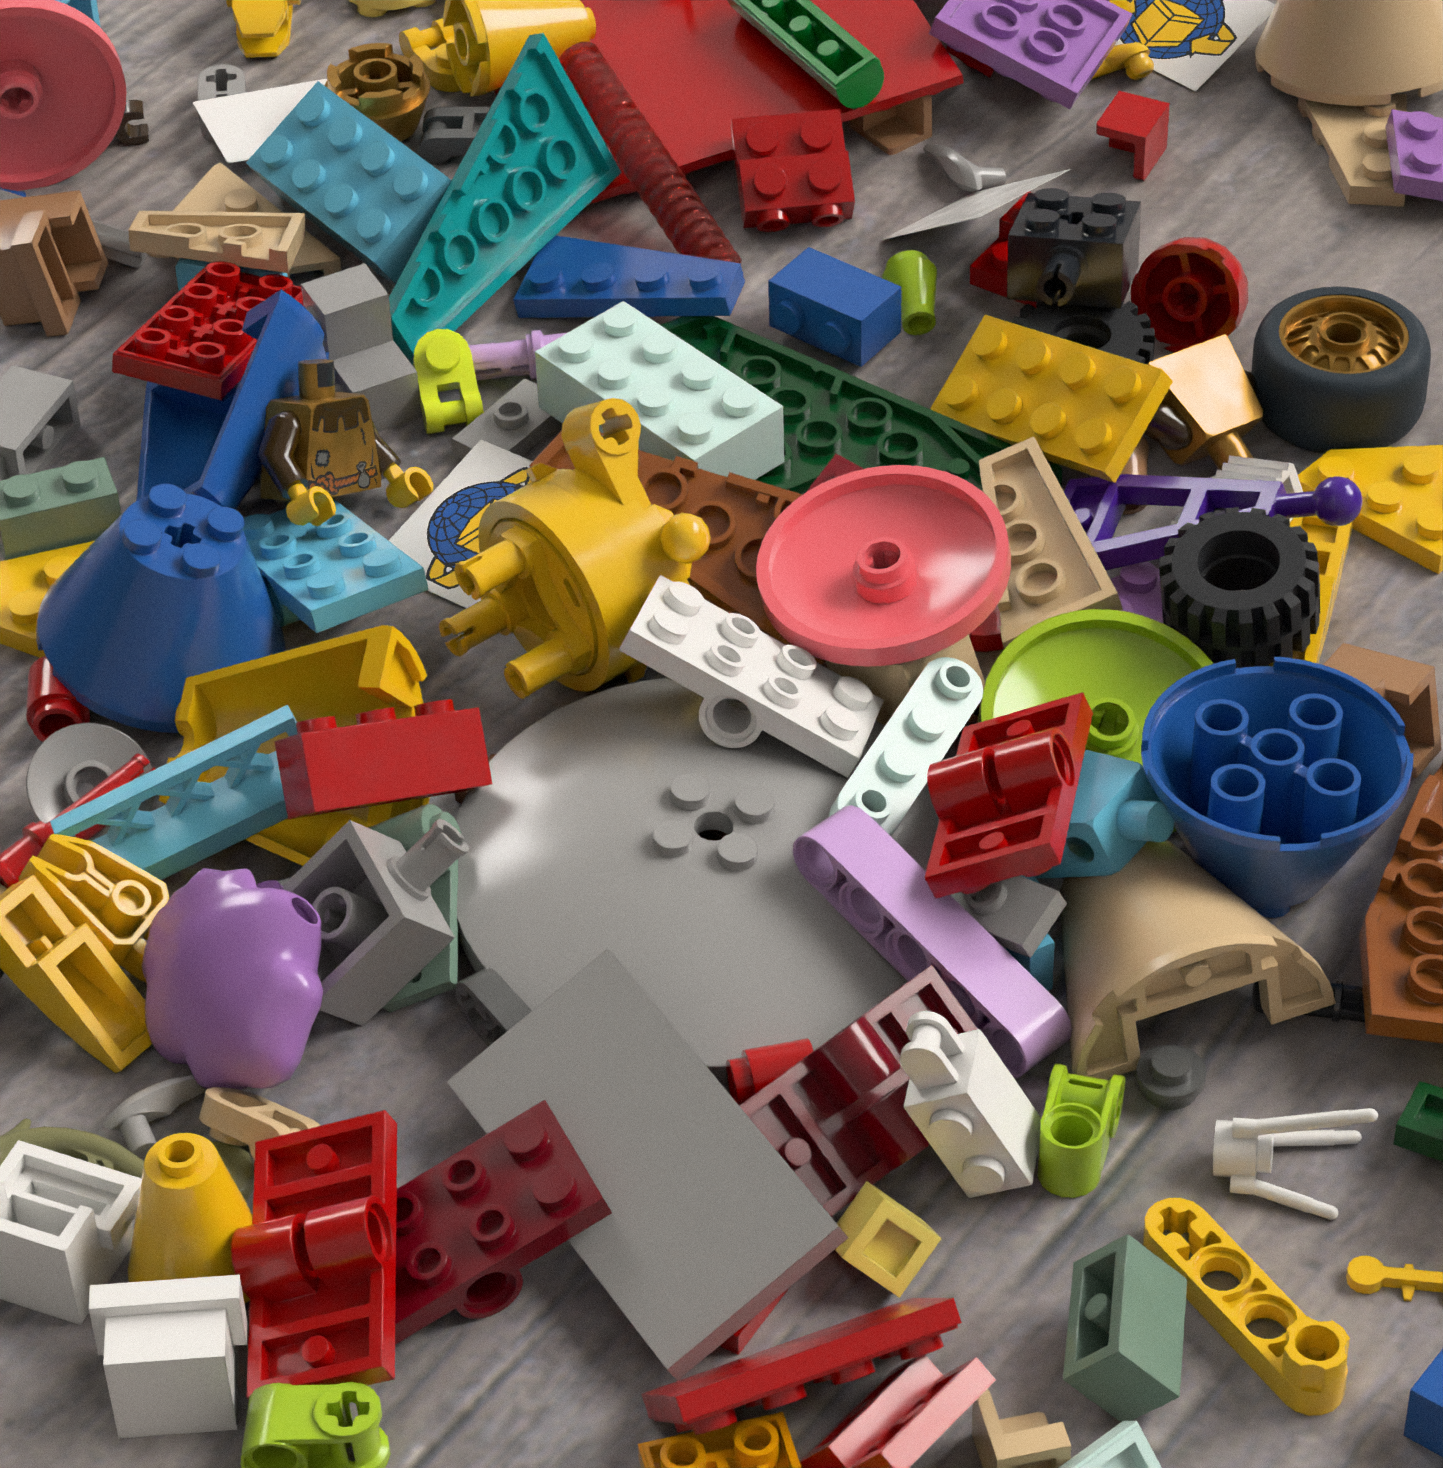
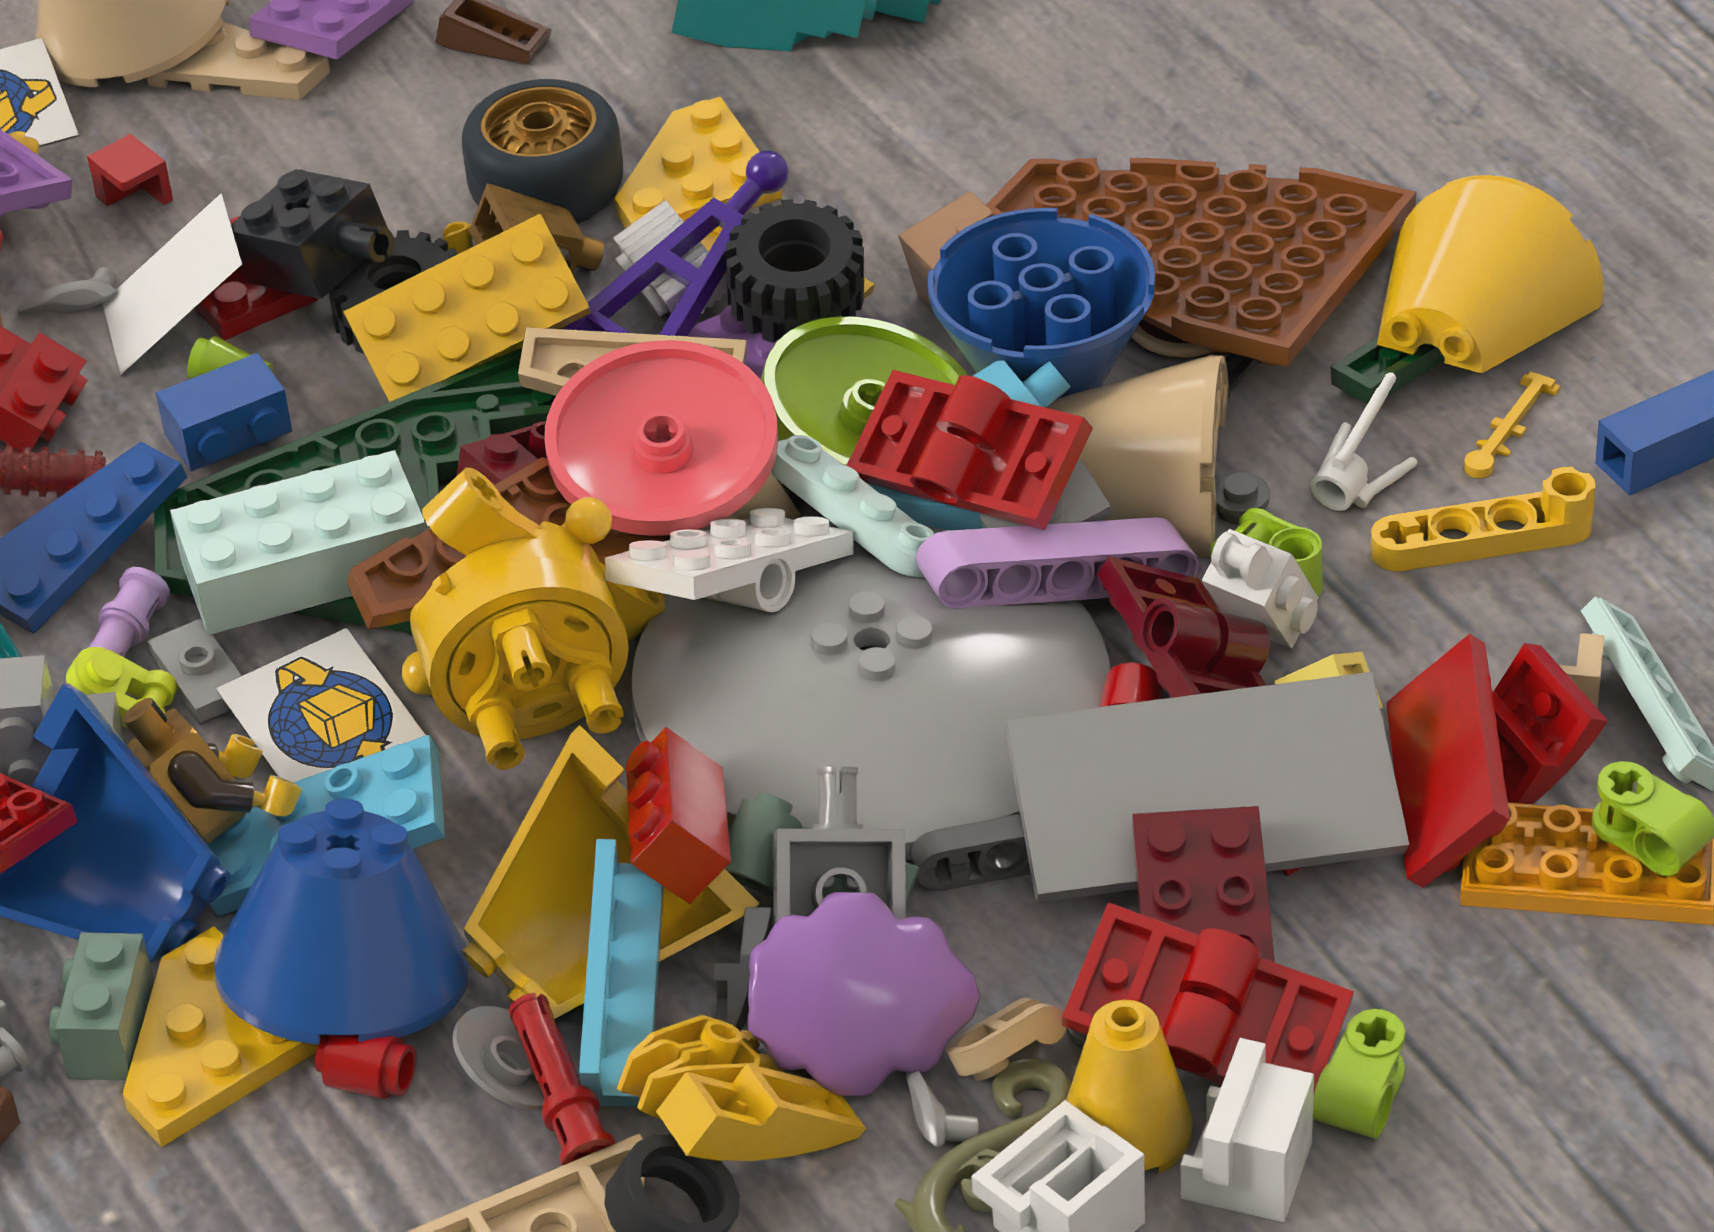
camera: 65 degrees left, 0 degrees up
(1125, 1329) = (1498, 581): sand green brick -> none
(1190, 292) = (400, 187): red cylinder -> none

